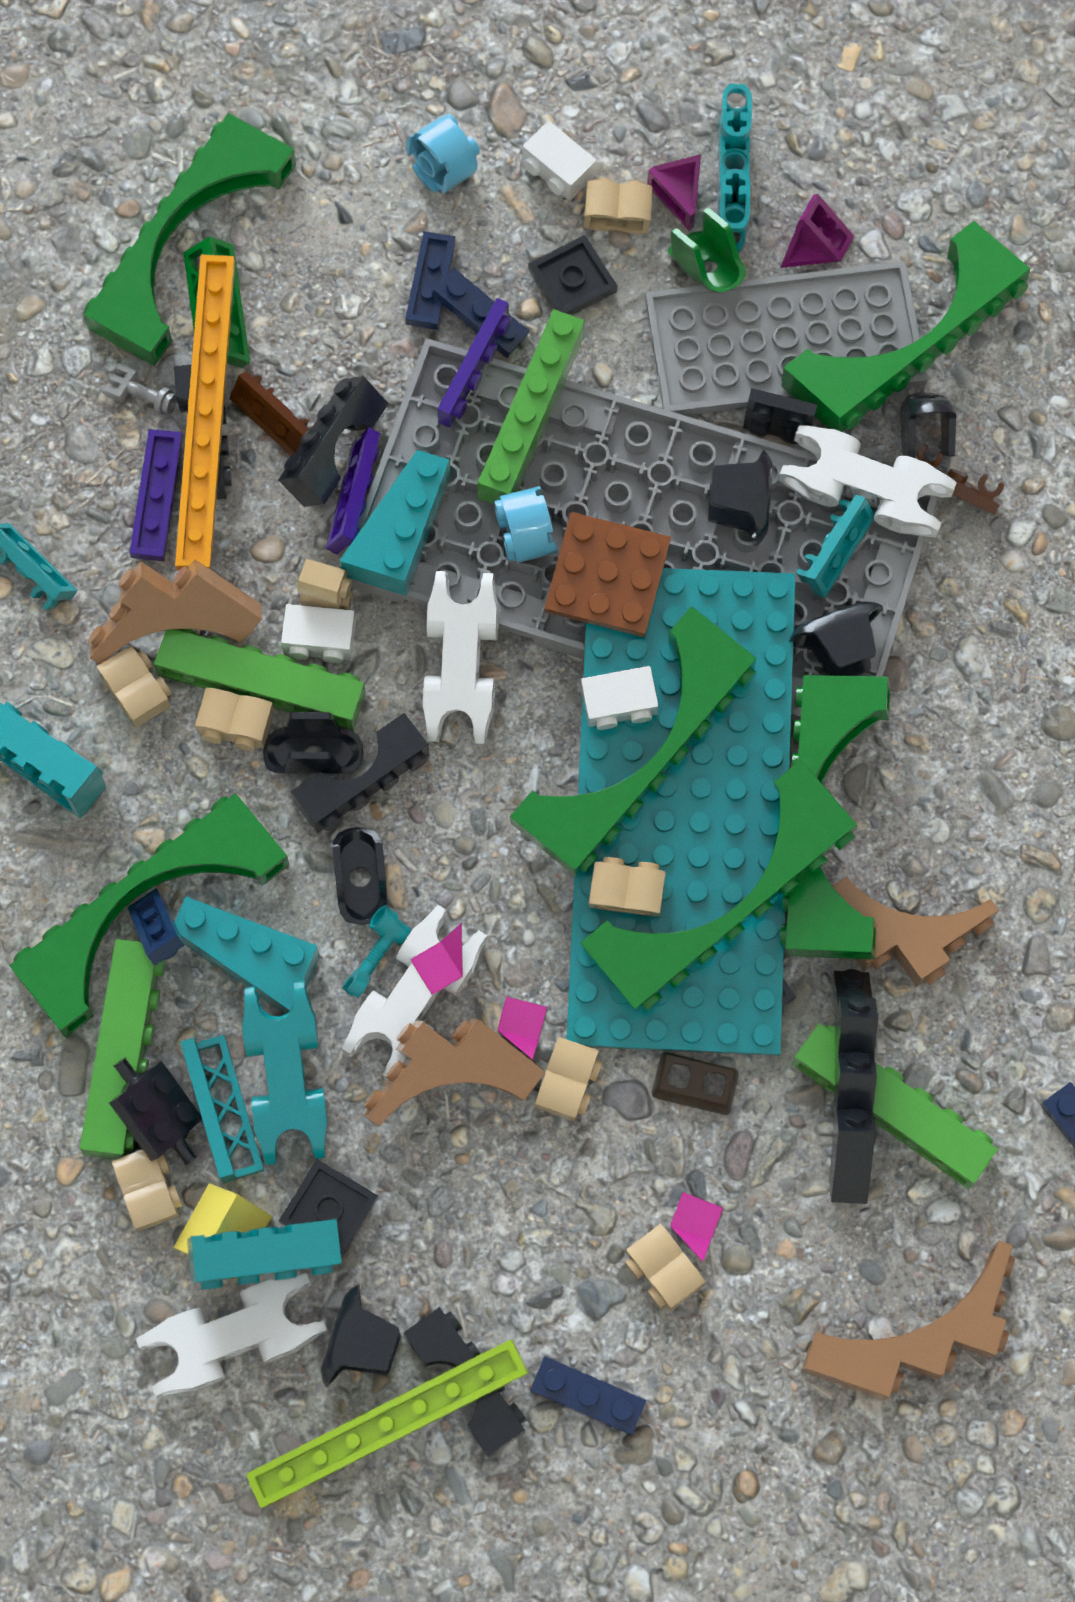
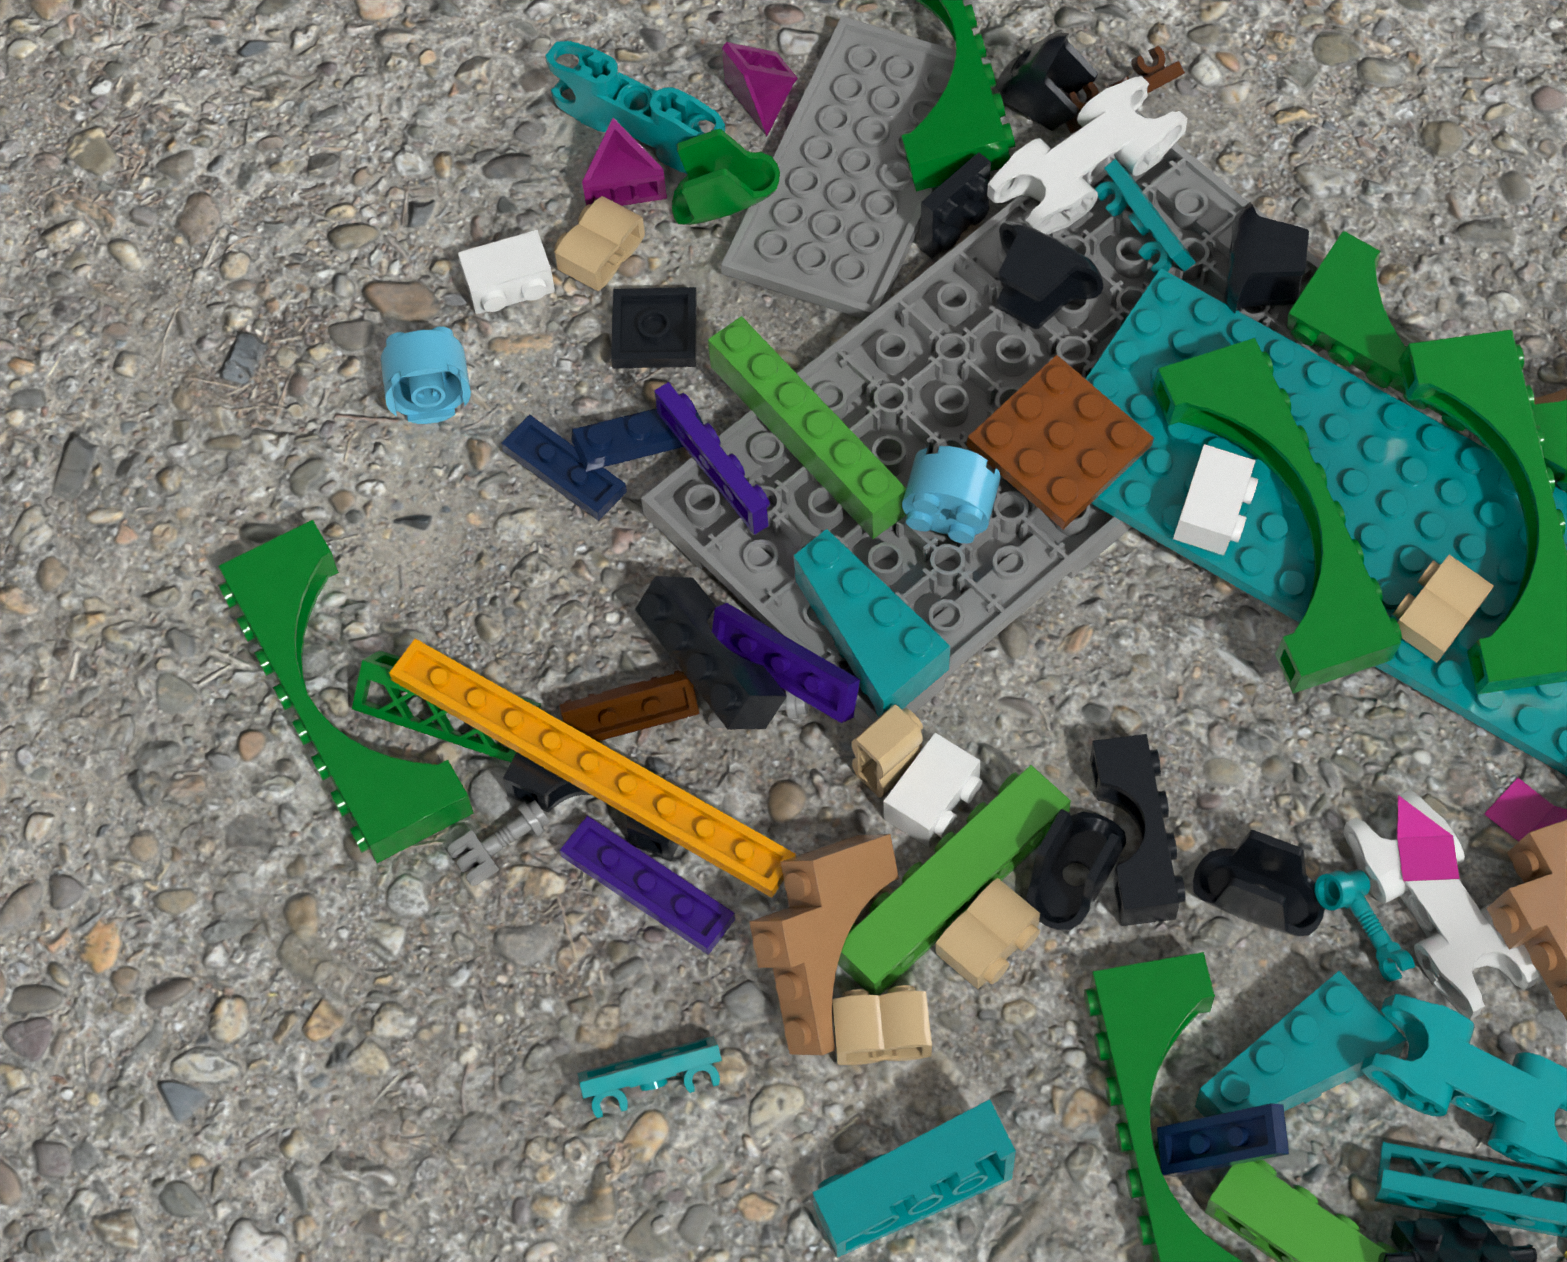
camera: 55 degrees left, 10 degrees down
(462, 631) = (1035, 631): white piece -> none

